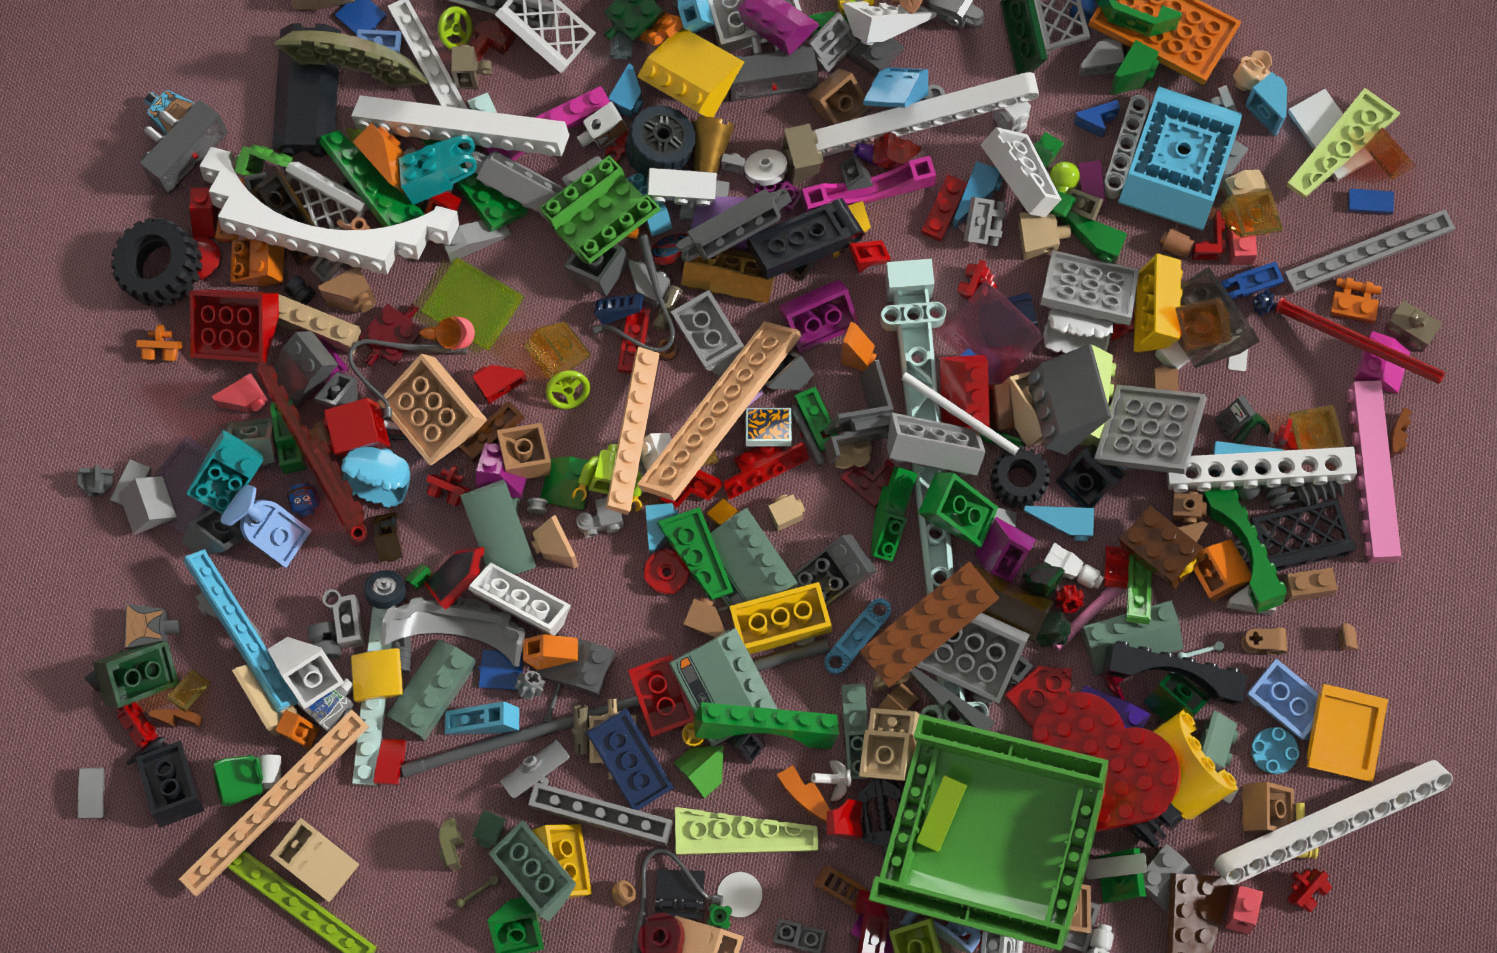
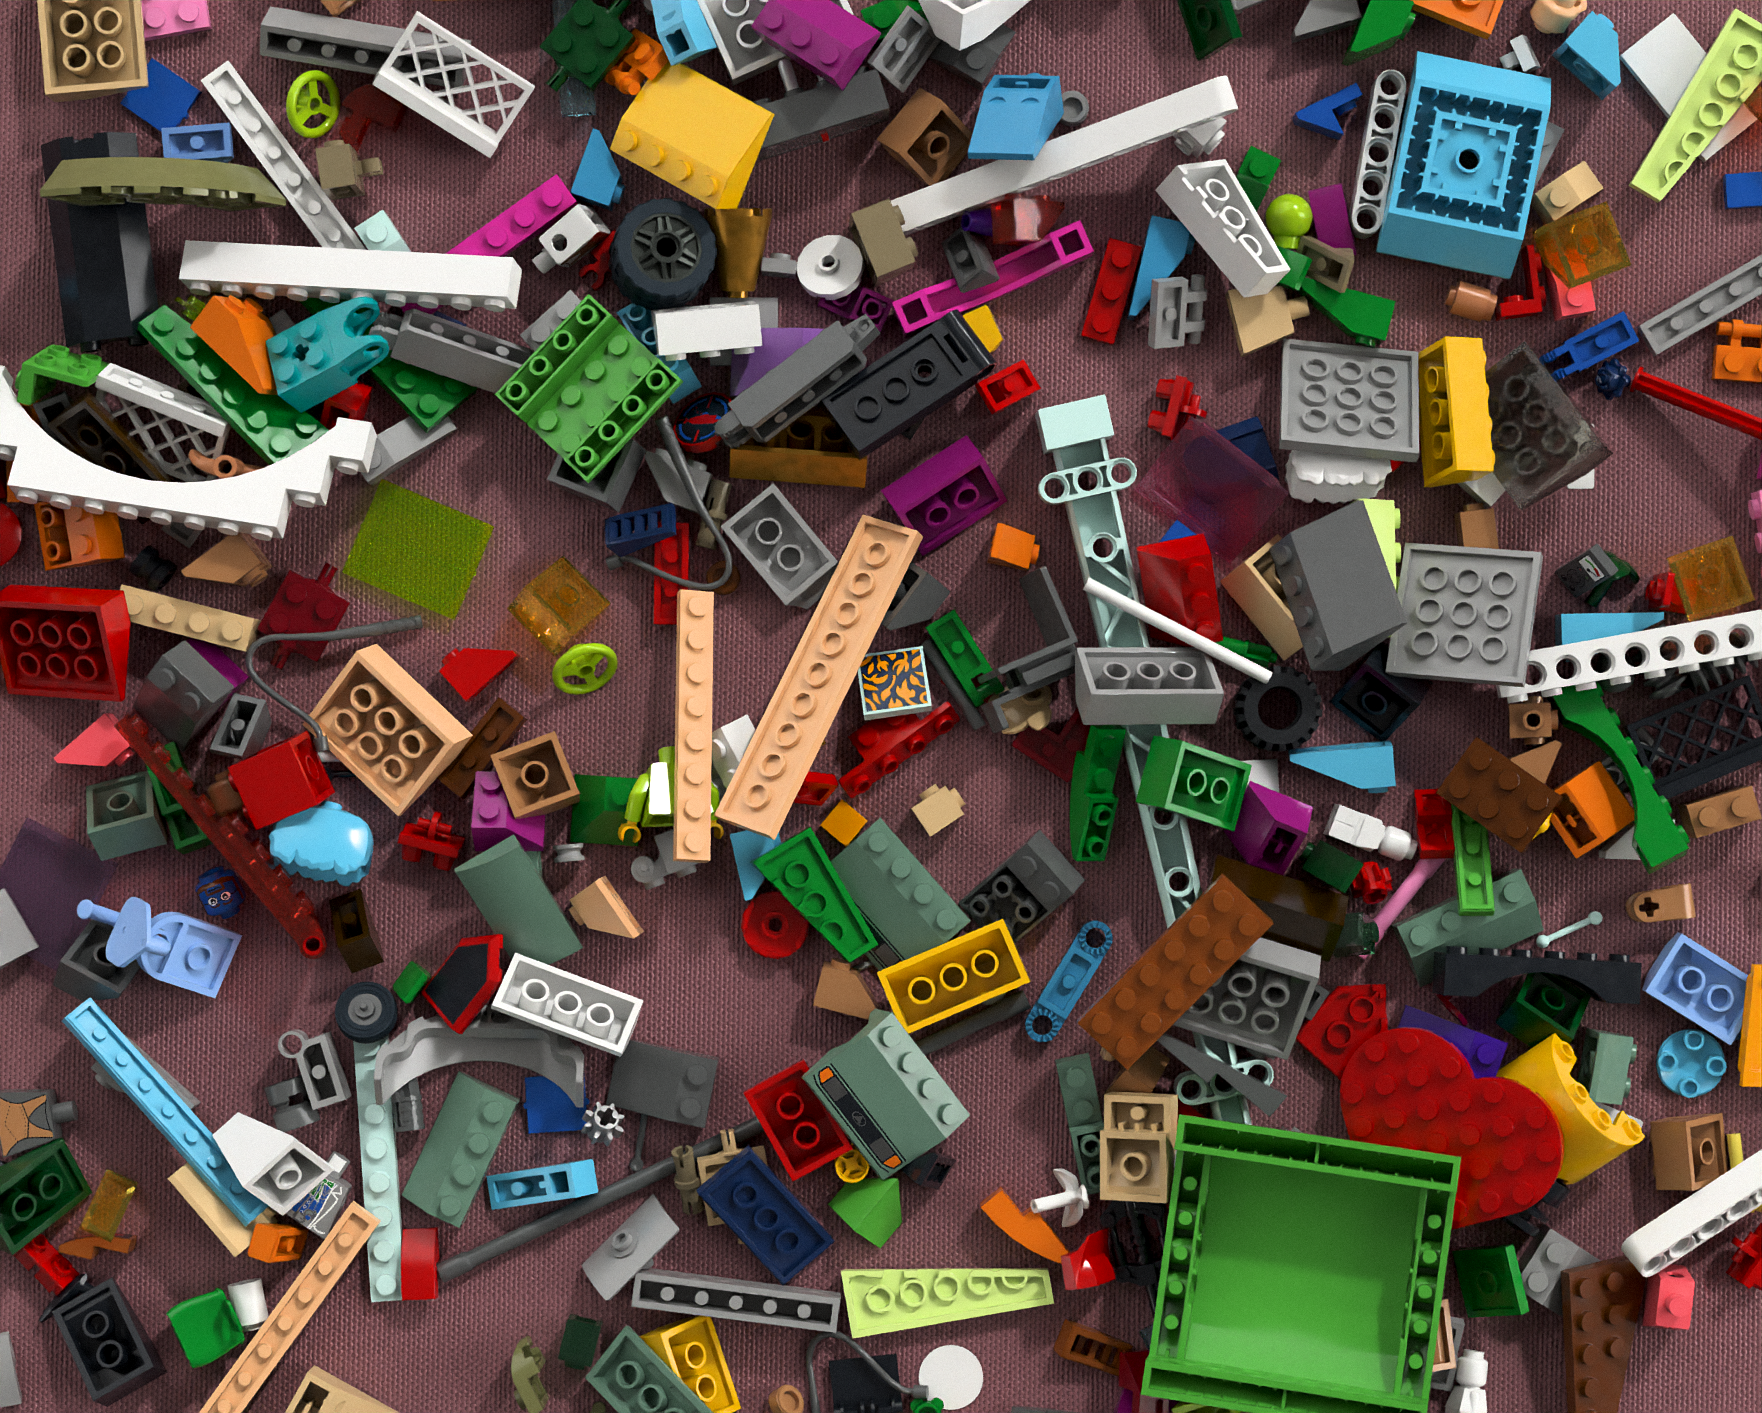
camera: 10 degrees left, 15 degrees up
(225, 471) = (99, 876): teal slope -> none
(376, 675) = (378, 1145): yellow slope -> none
(451, 332) = (395, 607): orange hair -> none
(549, 651) = (625, 1075): orange slope -> none
(725, 720) = (911, 1148): green arch -> none
(941, 813) = (1226, 1242): lime tile -> none
(1000, 407) = (1235, 604): reddish brown slope -> none
(1116, 866) = (1485, 1271): white sticker -> none
(1204, 323) = (1529, 446): clear orange slope -> none

